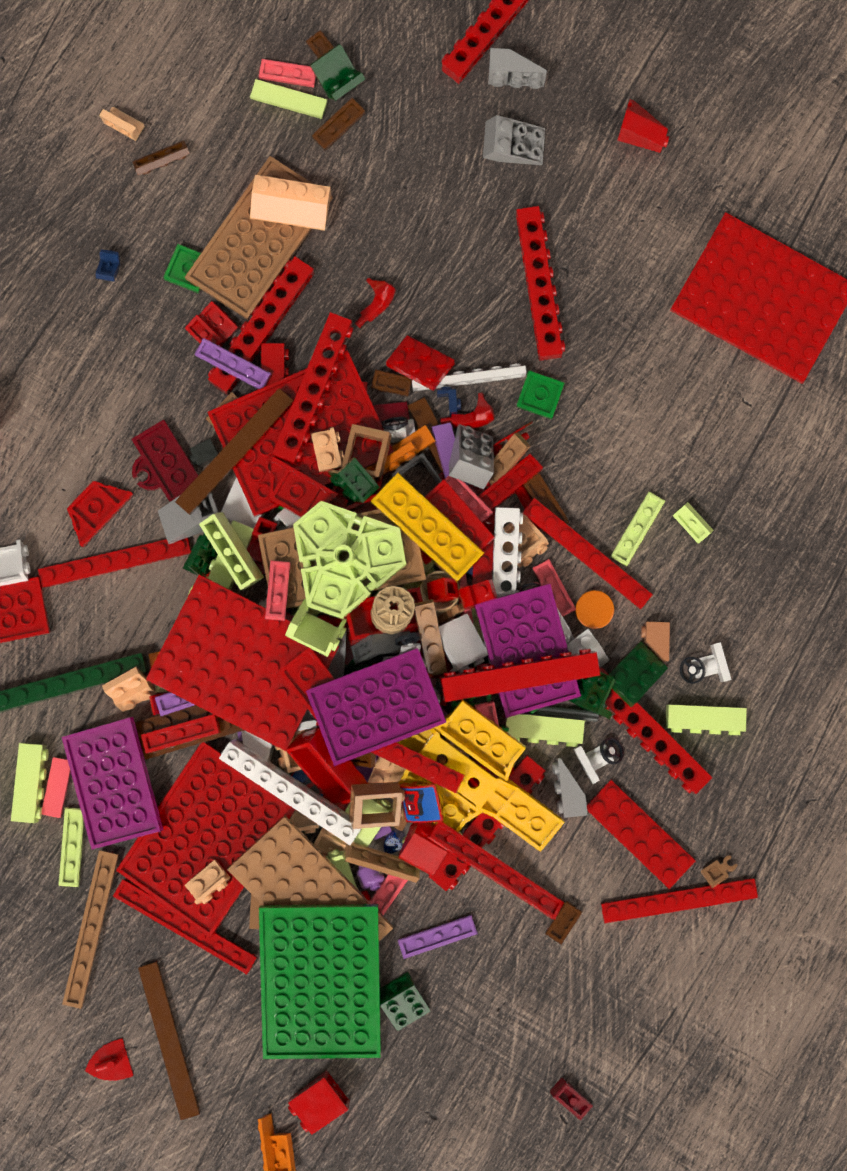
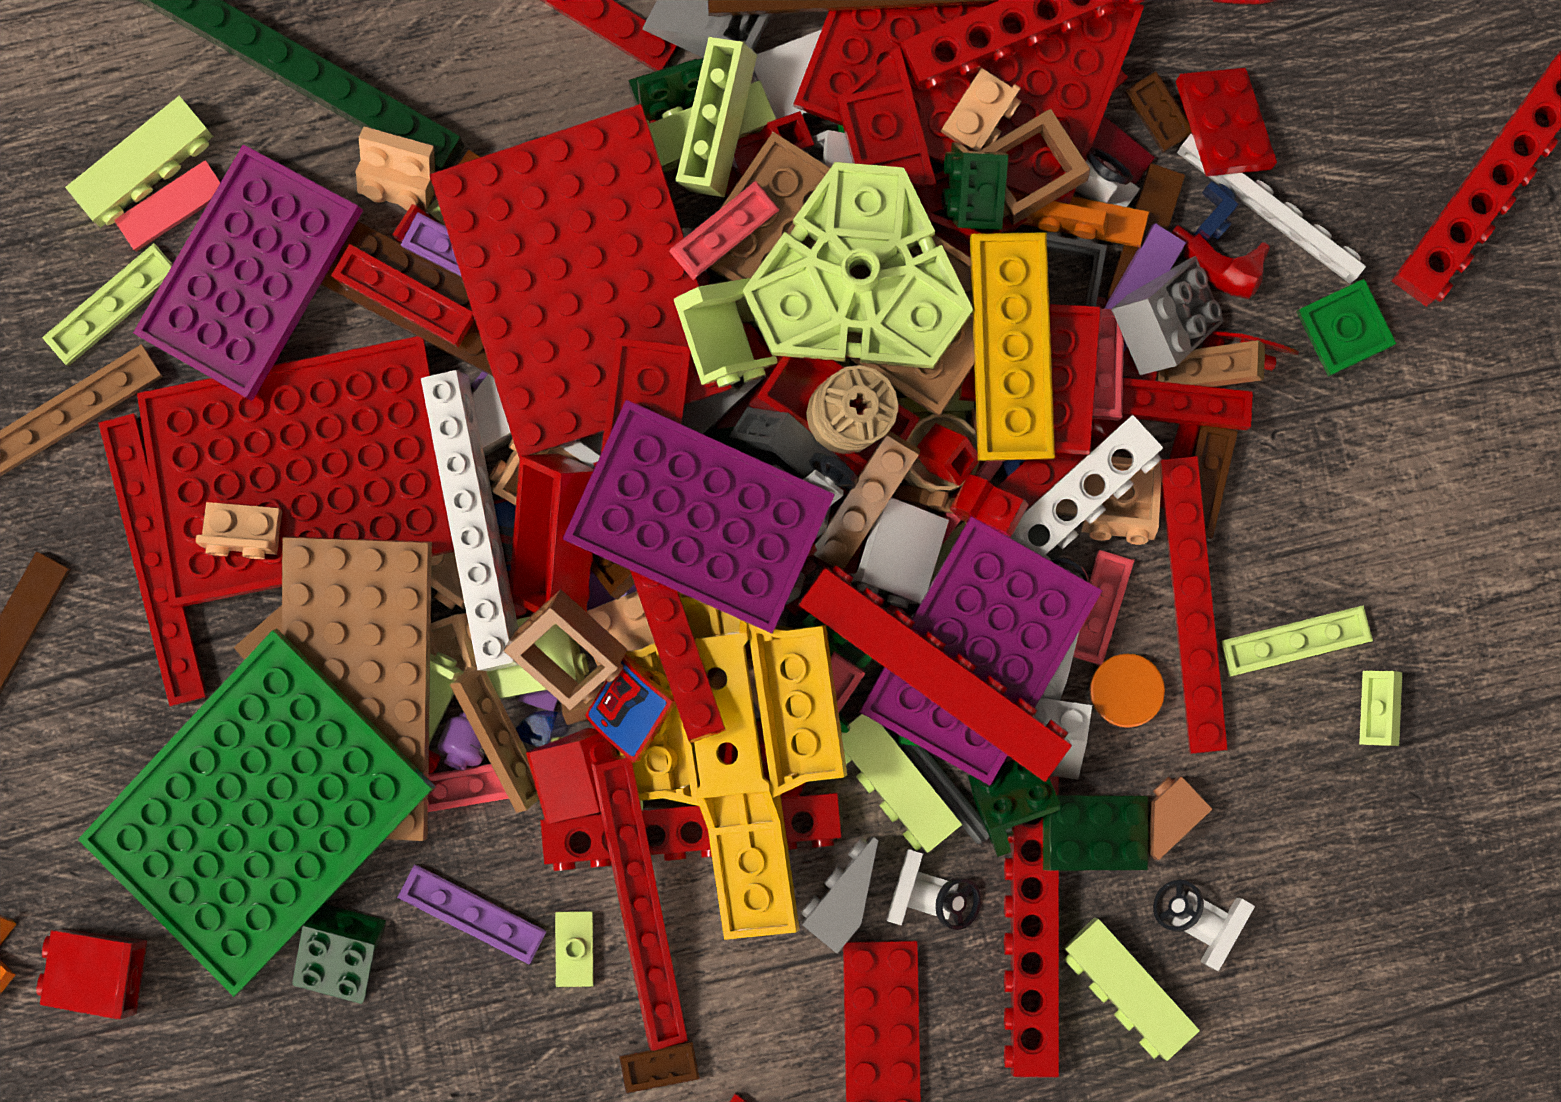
camera: 40 degrees right, 0 degrees up
(488, 910) = (574, 949): none -> yellowish green plate

